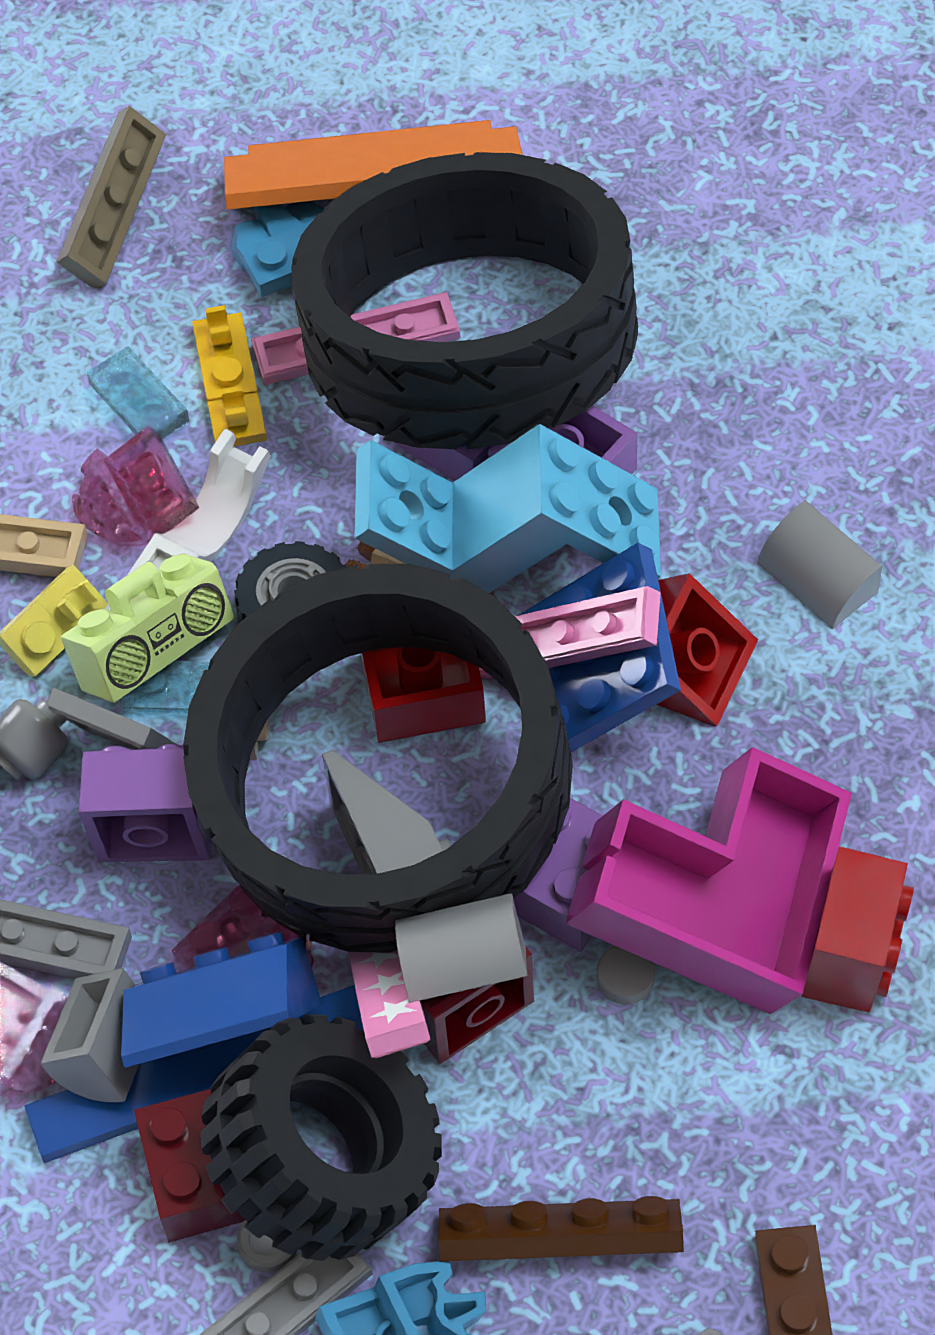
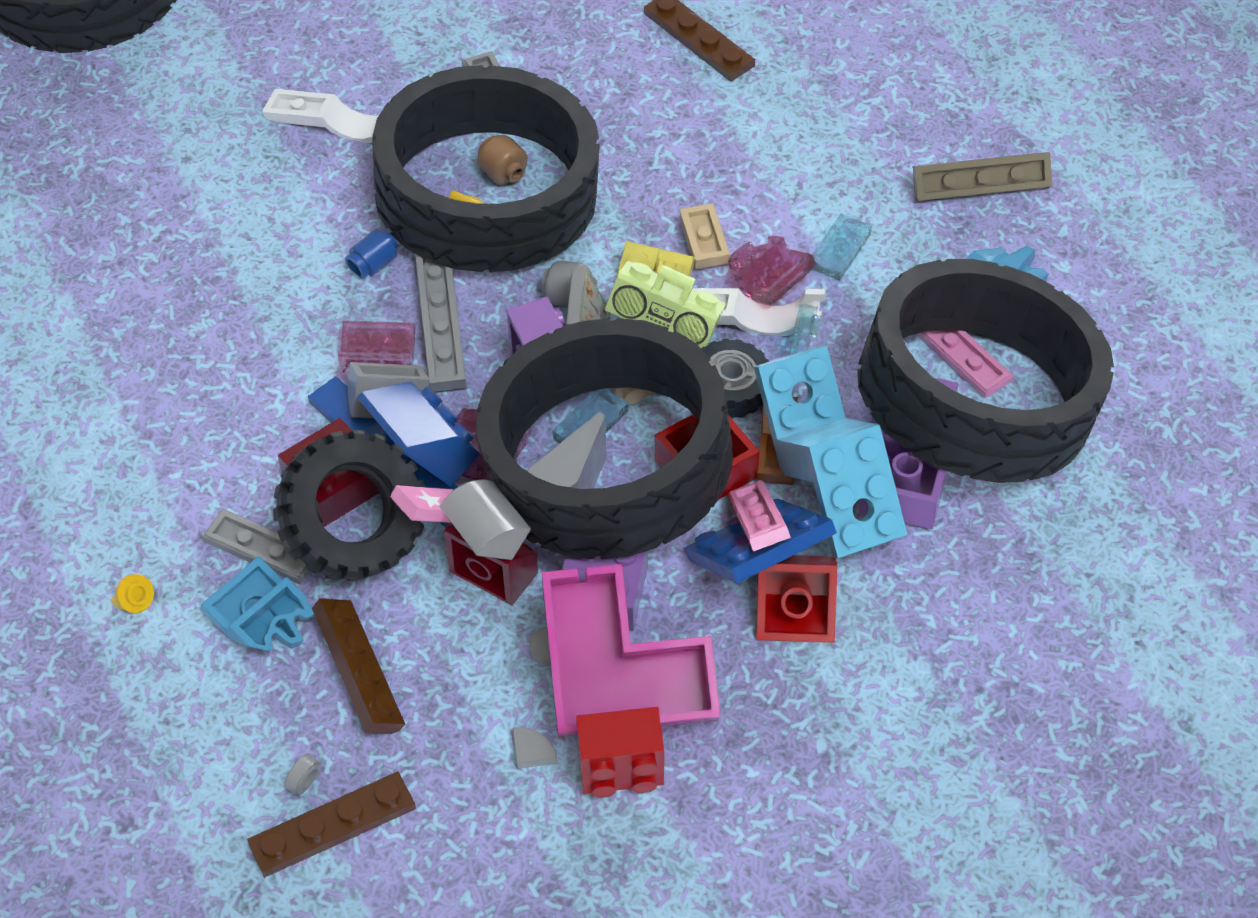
camera: 65 degrees right, 5 degrees down
(229, 376) = (864, 296): yellow plate -> none
(281, 798) = (600, 400): none -> clear light blue plate
(303, 500) = (806, 327): none -> clear light blue plate
(333, 164) = (1064, 264): orange slope -> none
(780, 1049) = (533, 749): none -> light grey tile
(820, 565) = (906, 655): light grey brick -> none

